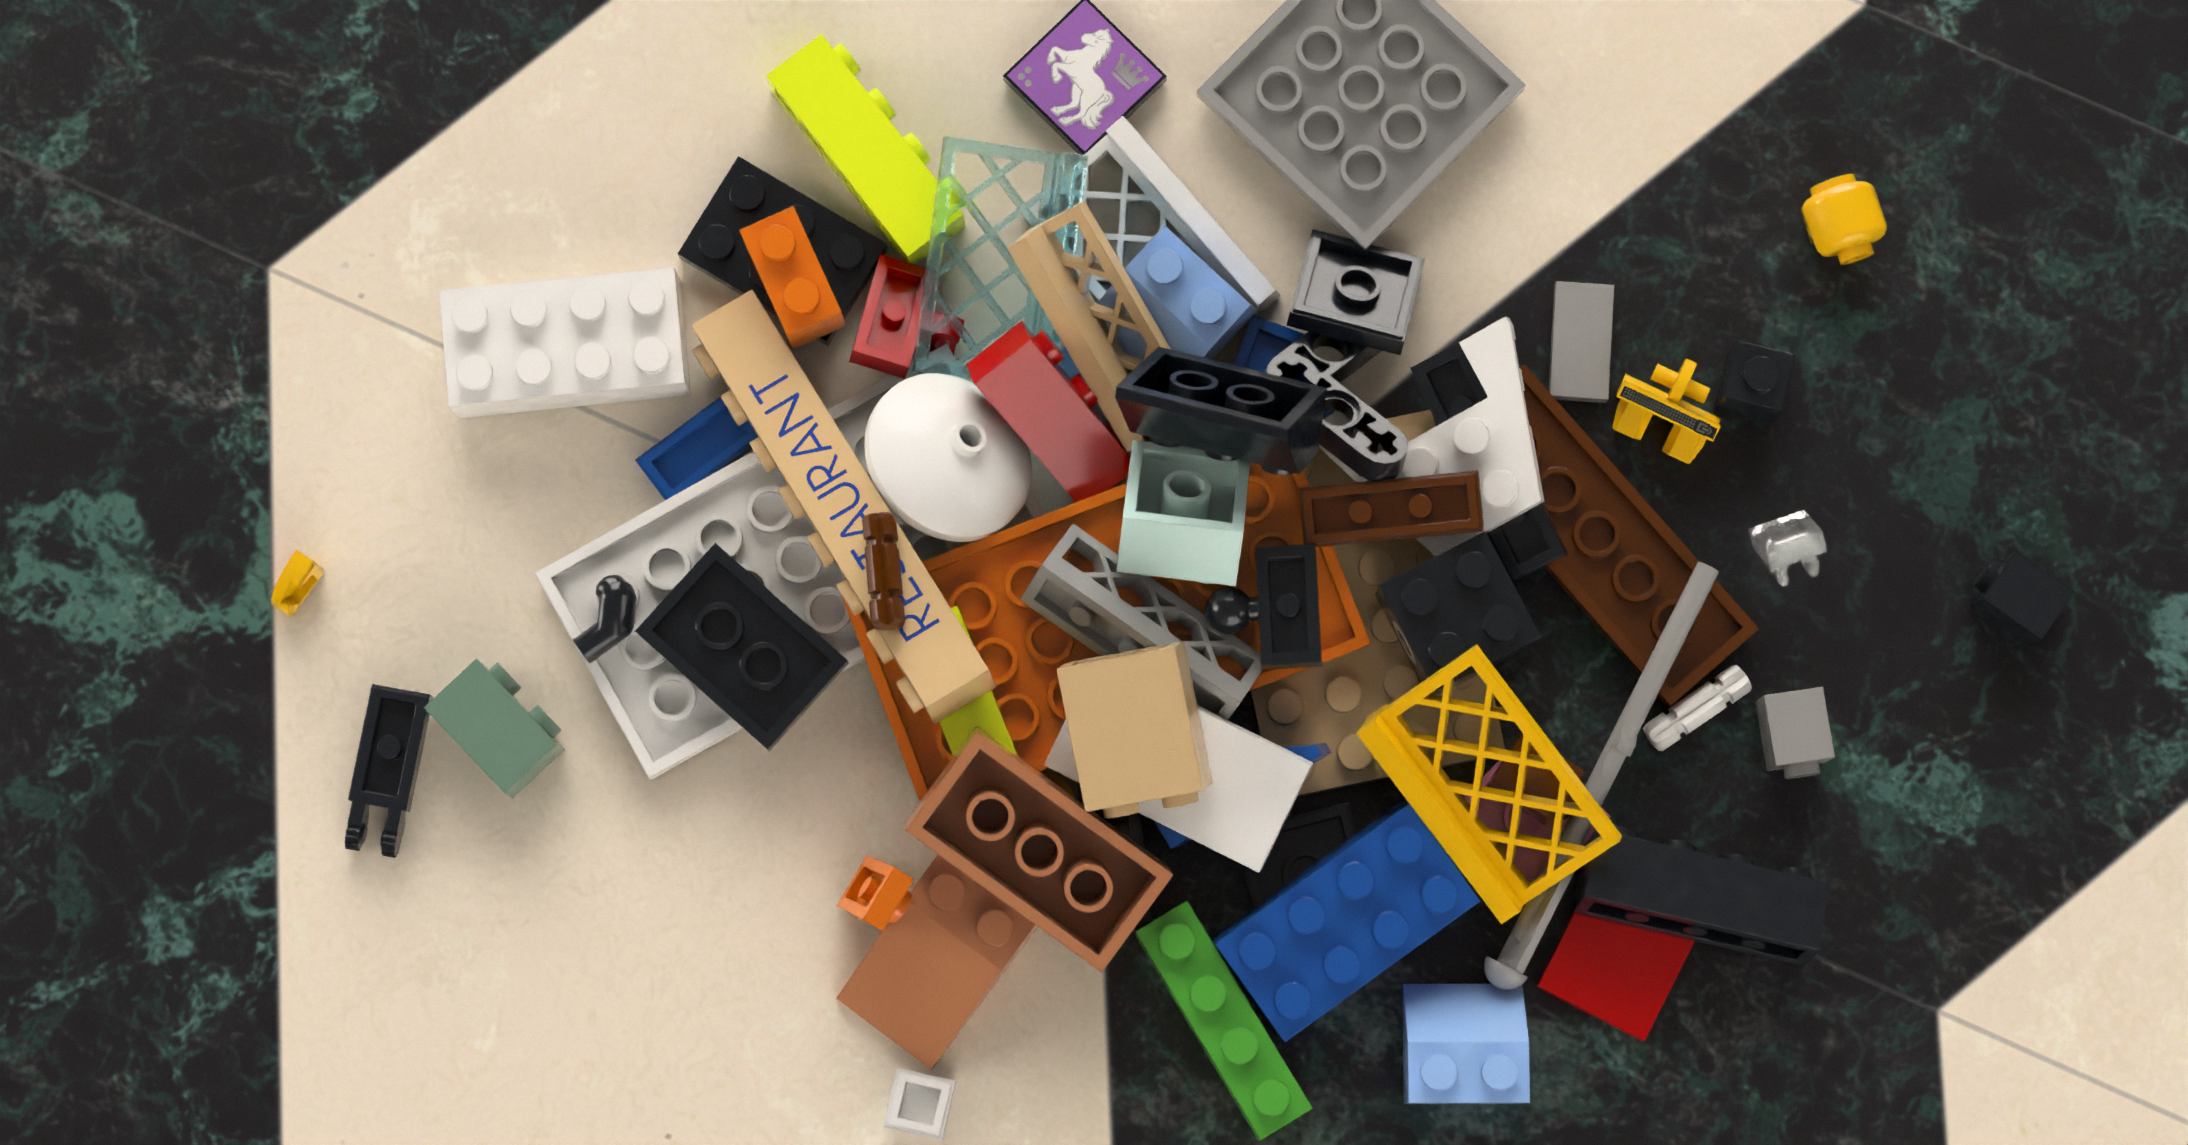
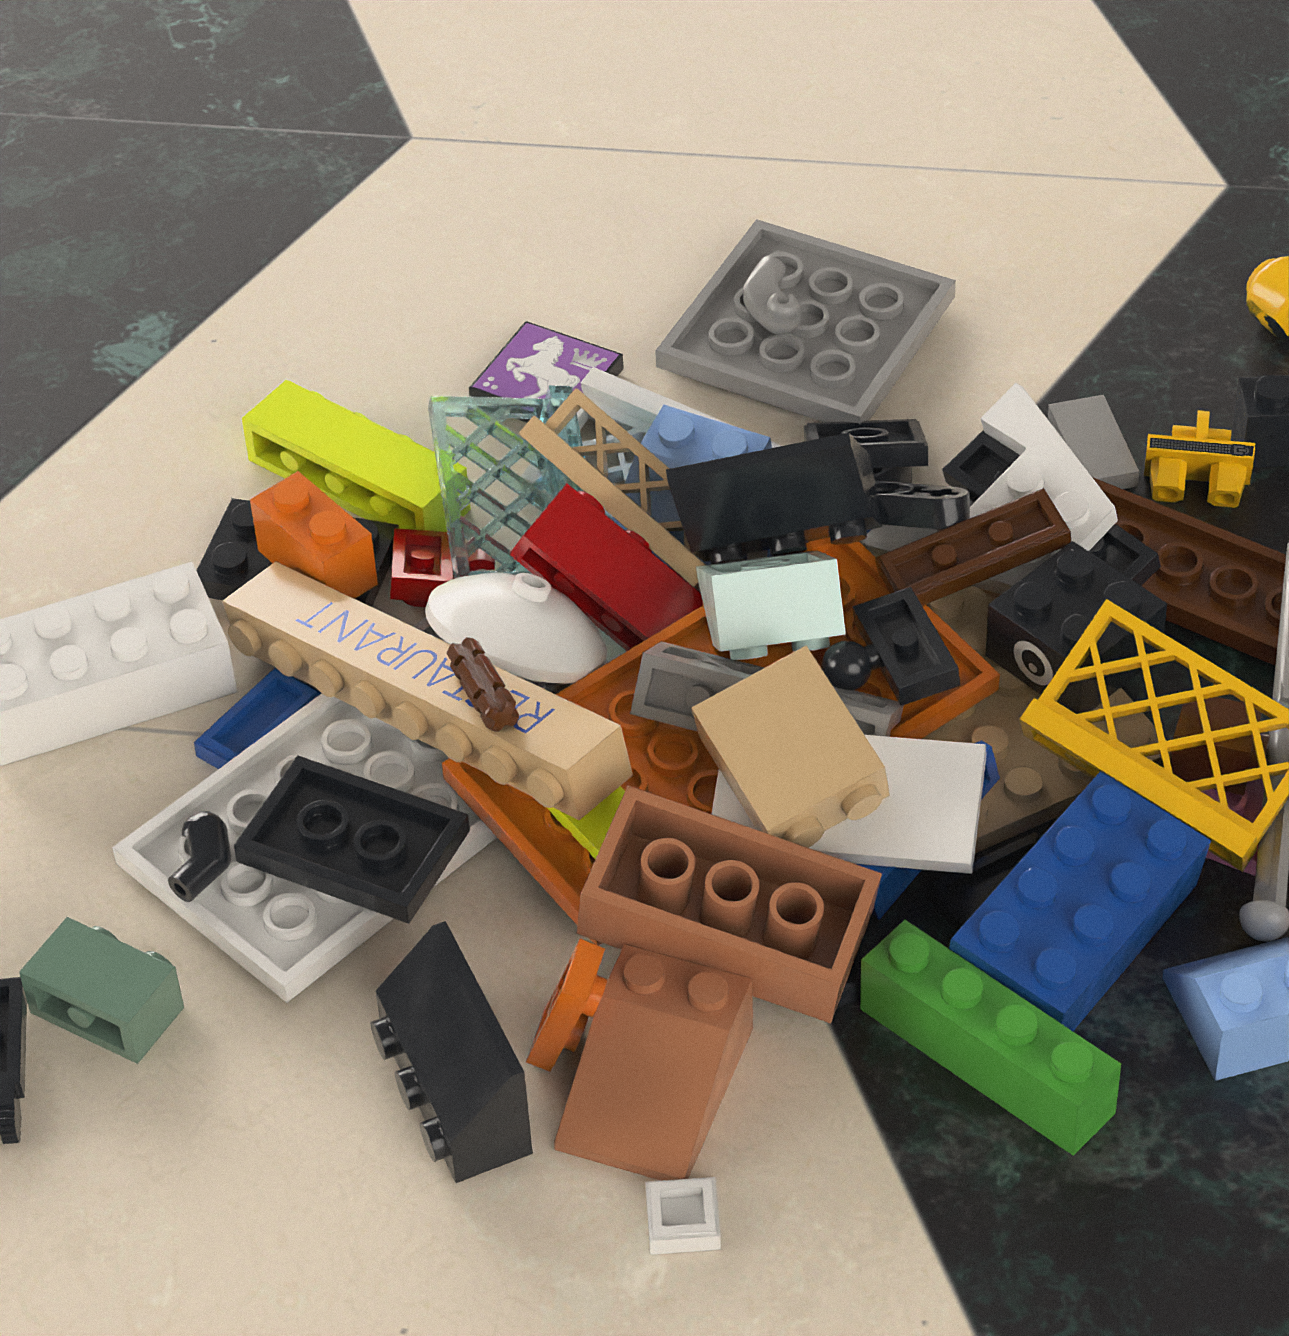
camera: 15 degrees left, 35 degrees down
(765, 910) = (453, 1059): none -> black slope
(1322, 66) = (766, 300): none -> light grey arm

